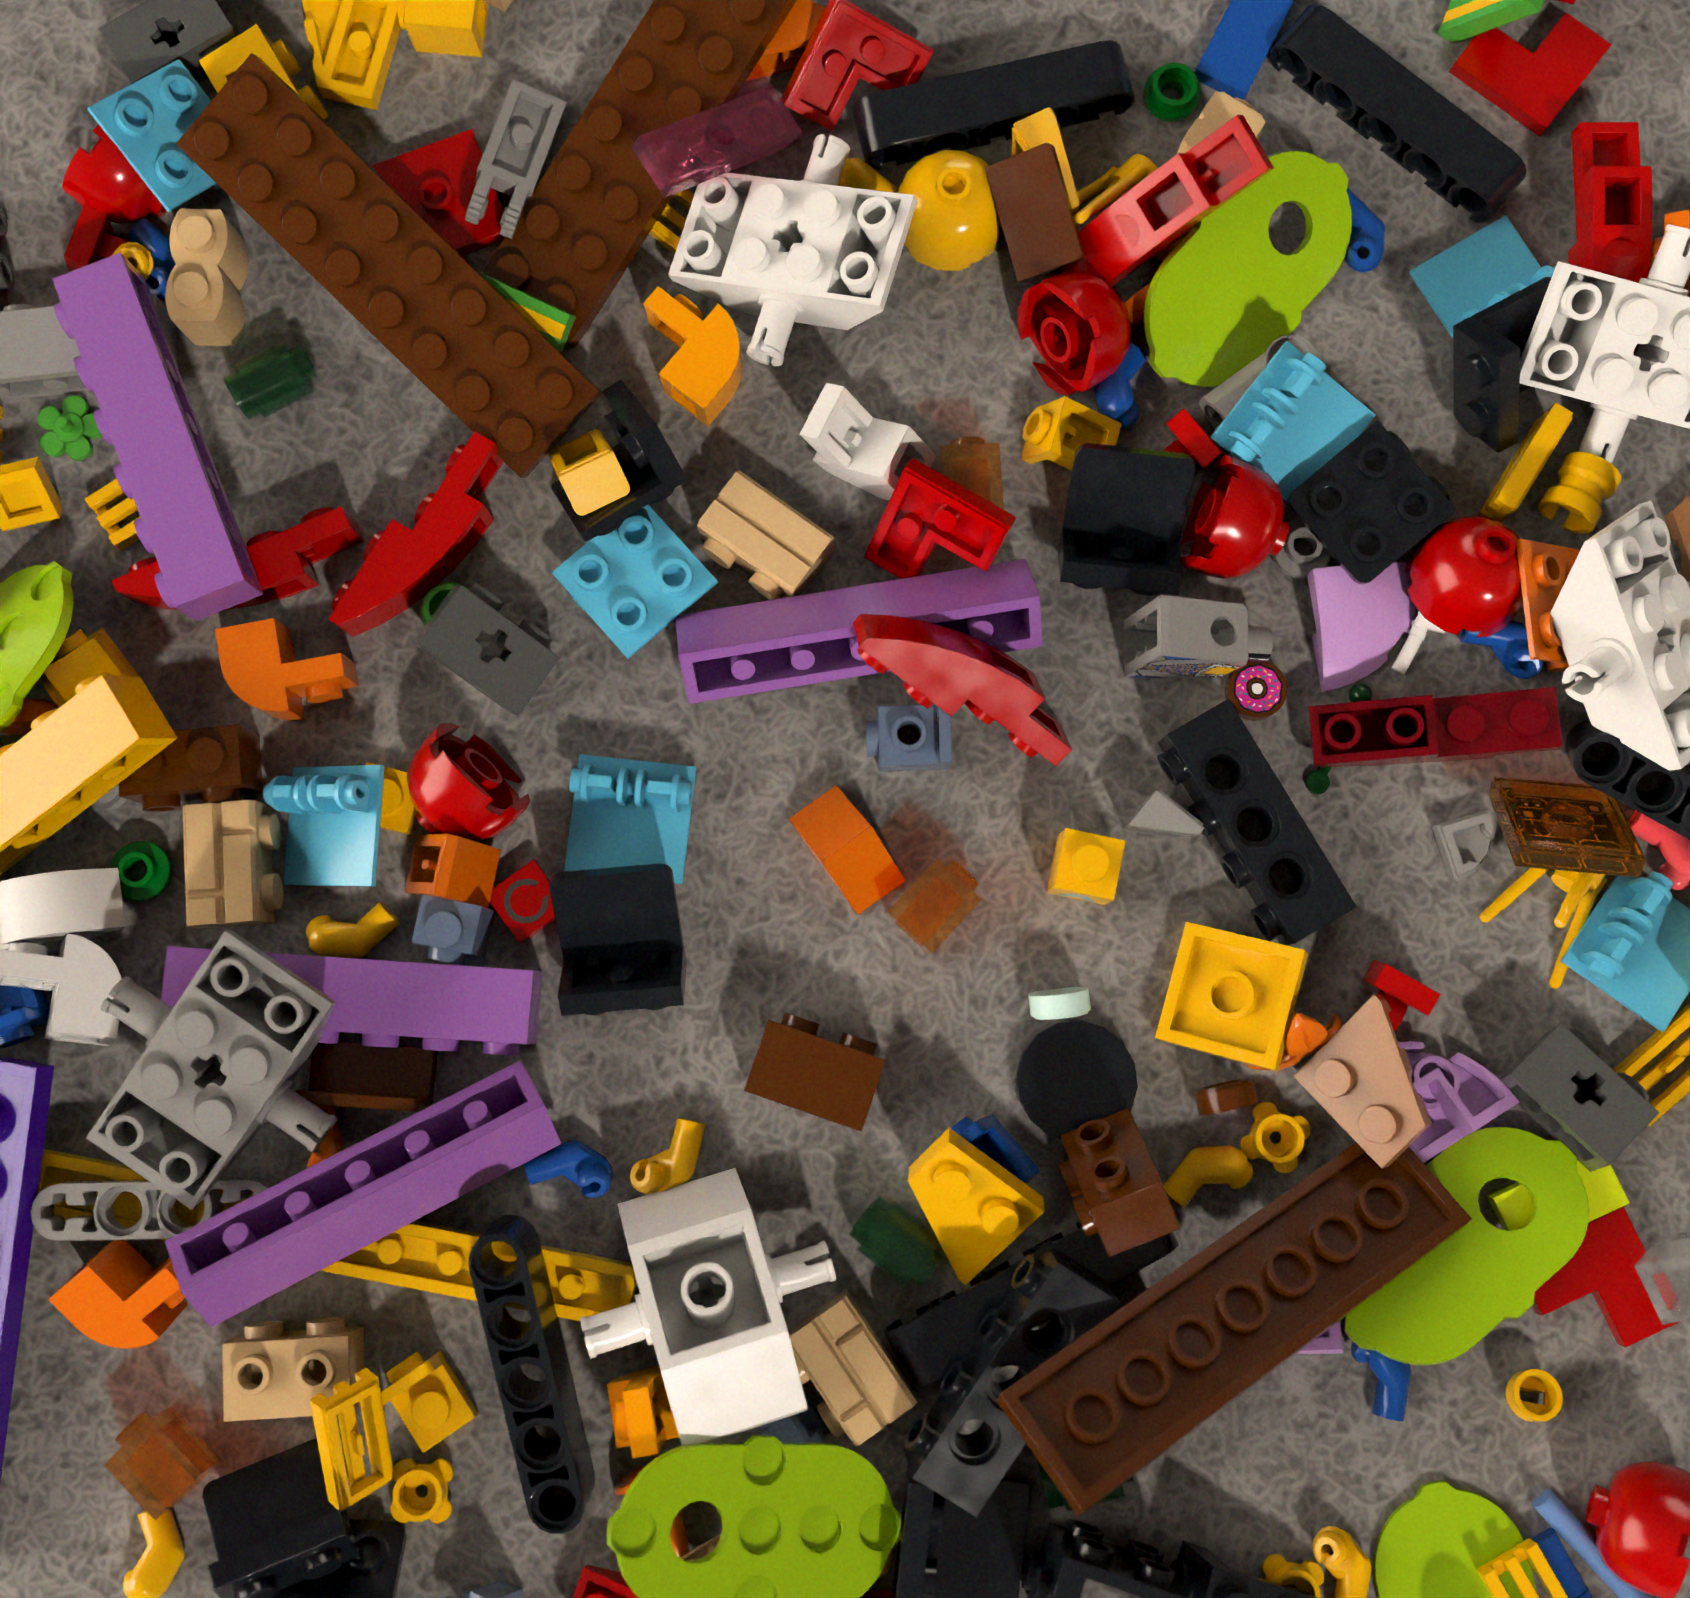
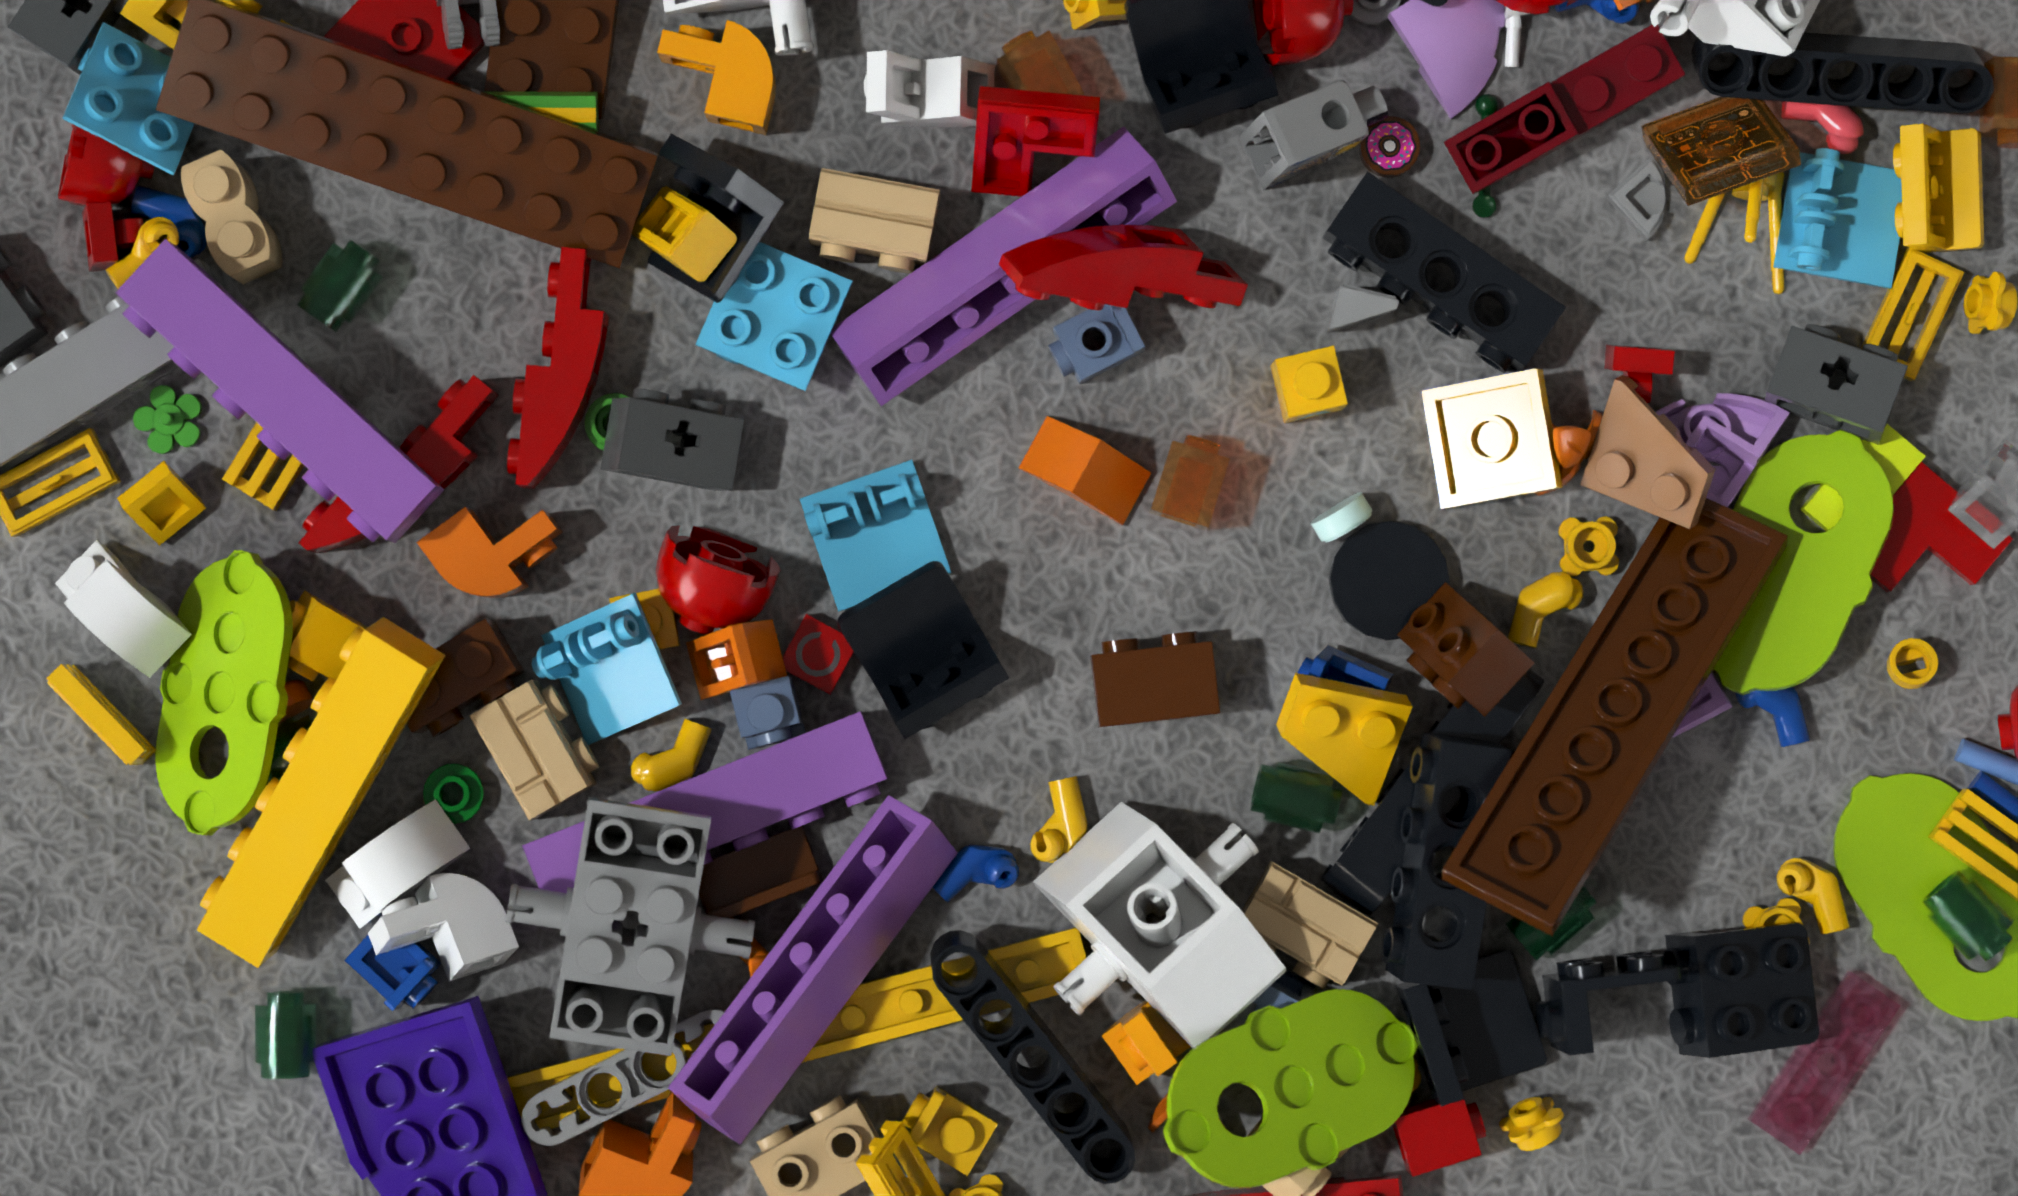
camera: 30 degrees left, 5 degrees up
(1226, 1096) = (1527, 530): reddish brown tile -> none

